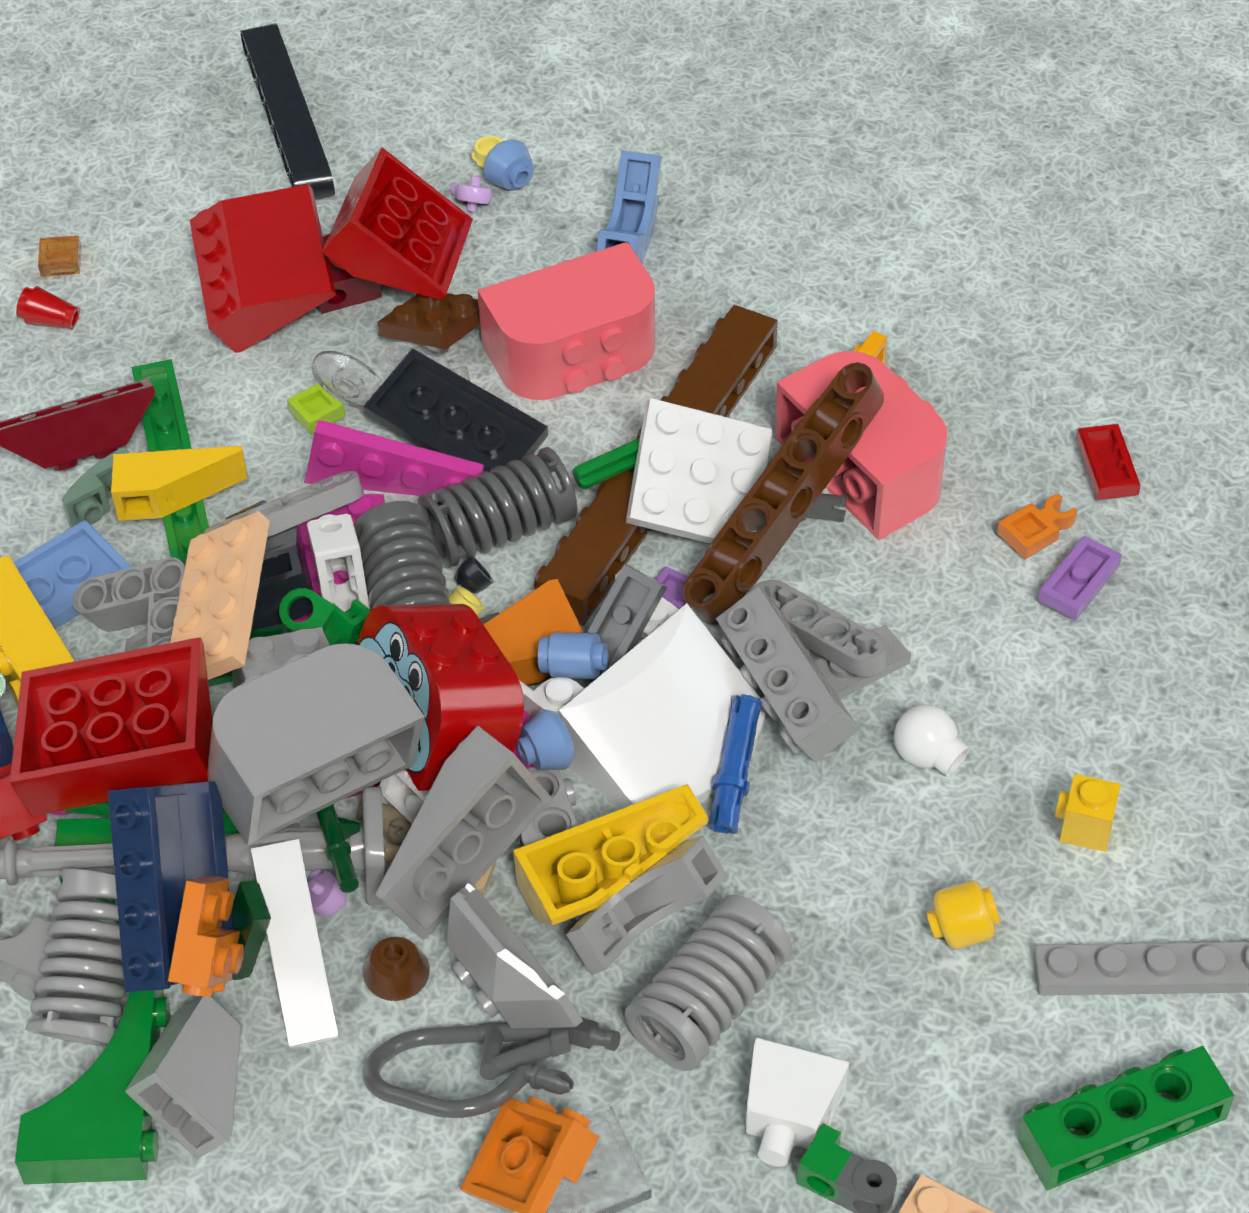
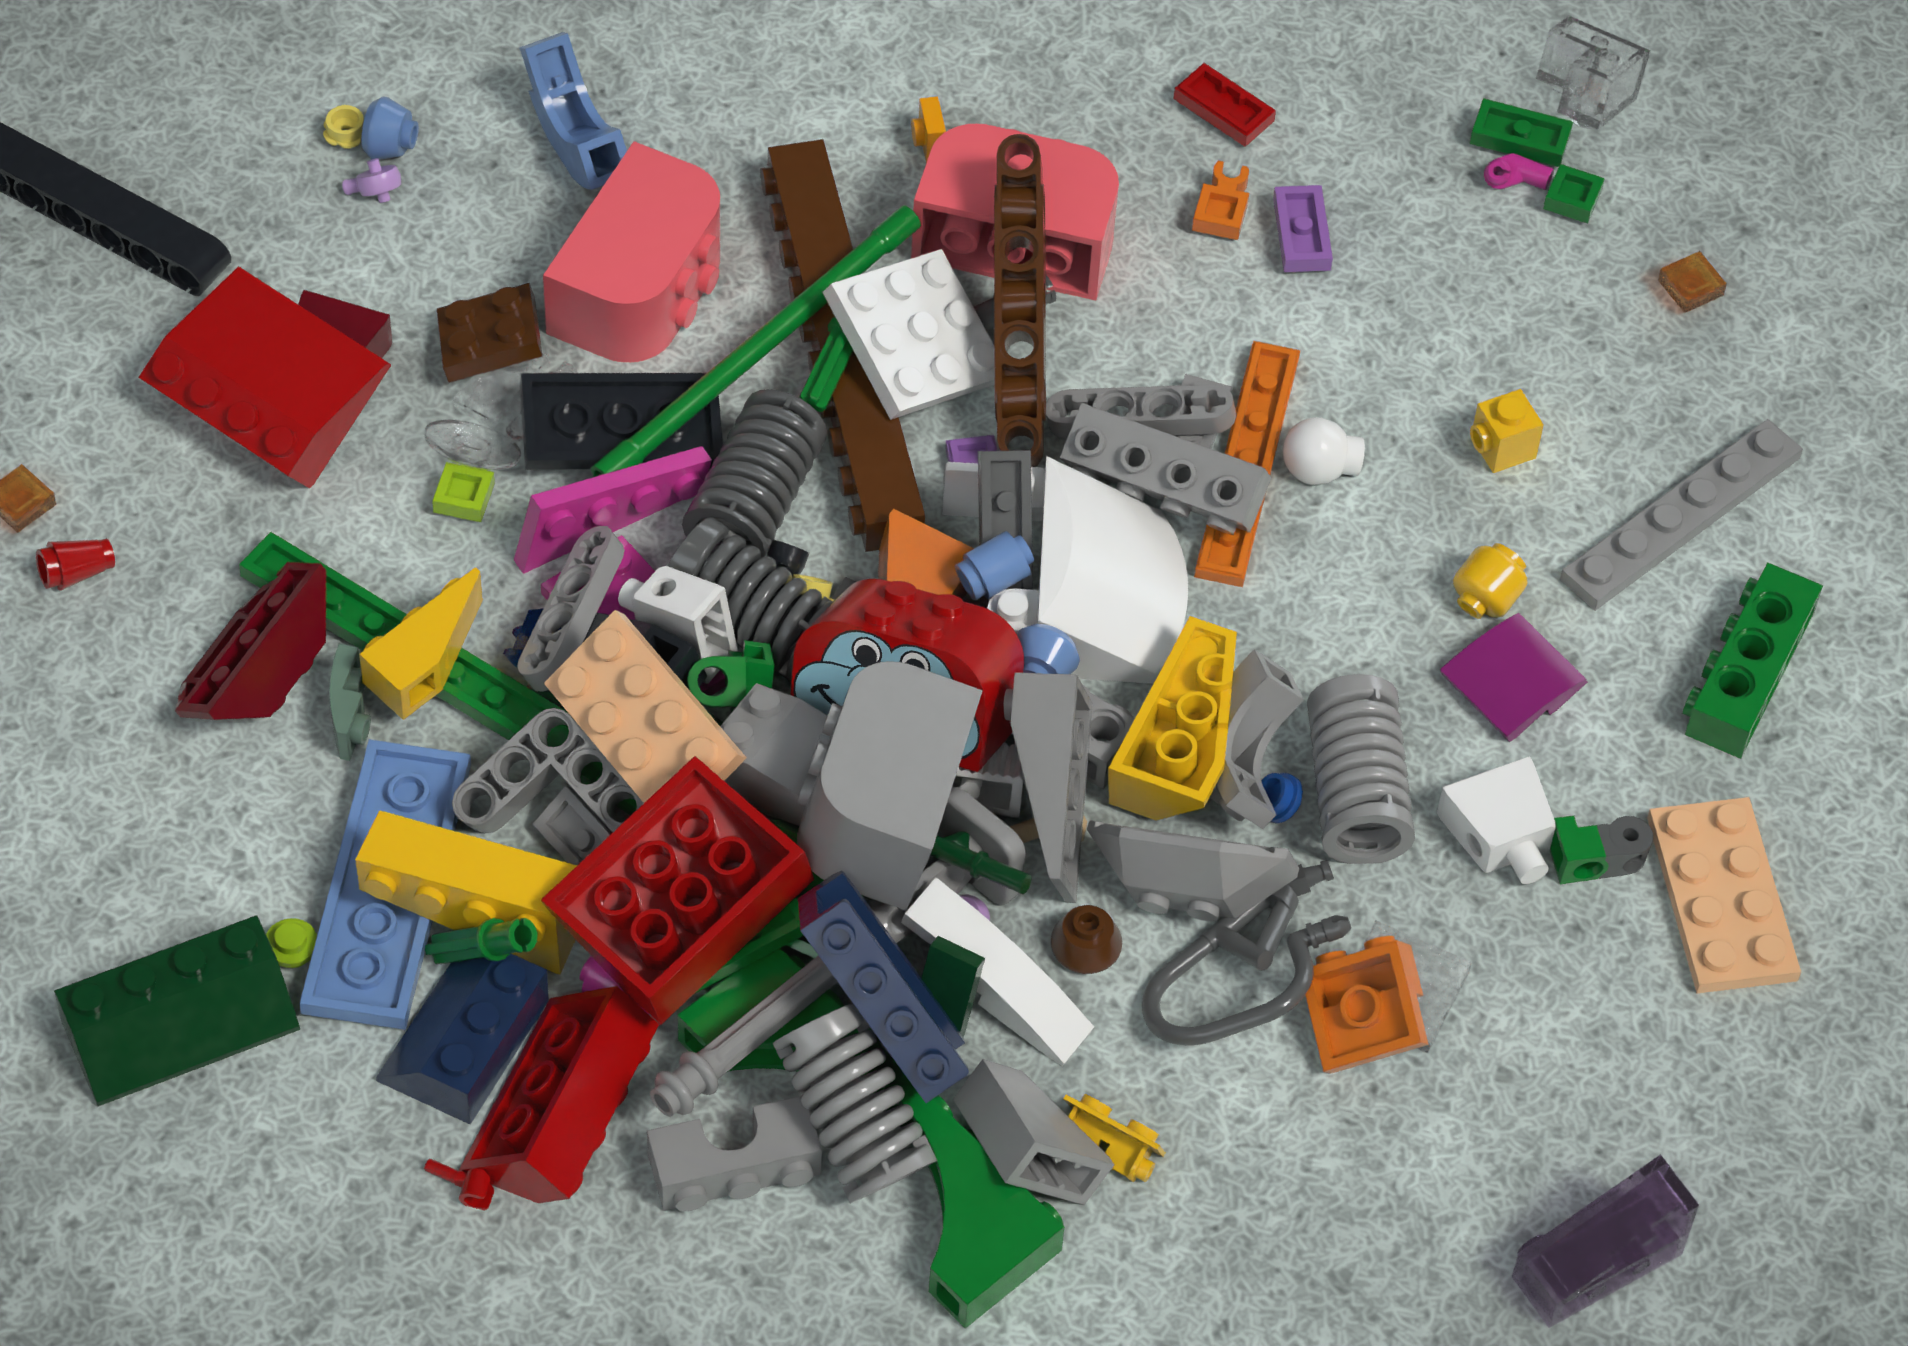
camera: 45 degrees left, 5 degrees up
(203, 950) = (969, 1020): orange plate -> none
(268, 1134) = (1128, 1146): none -> yellow hinge
(398, 230) = (367, 262): red slope -> none
(638, 963) = (1284, 794): none -> blue plate
(731, 781) = (1202, 593): blue pin -> none
(738, 401) = (881, 241): none -> green piece
(878, 712) = (1255, 440): none -> orange tile
(914, 998) = (1513, 676): none -> magenta slope

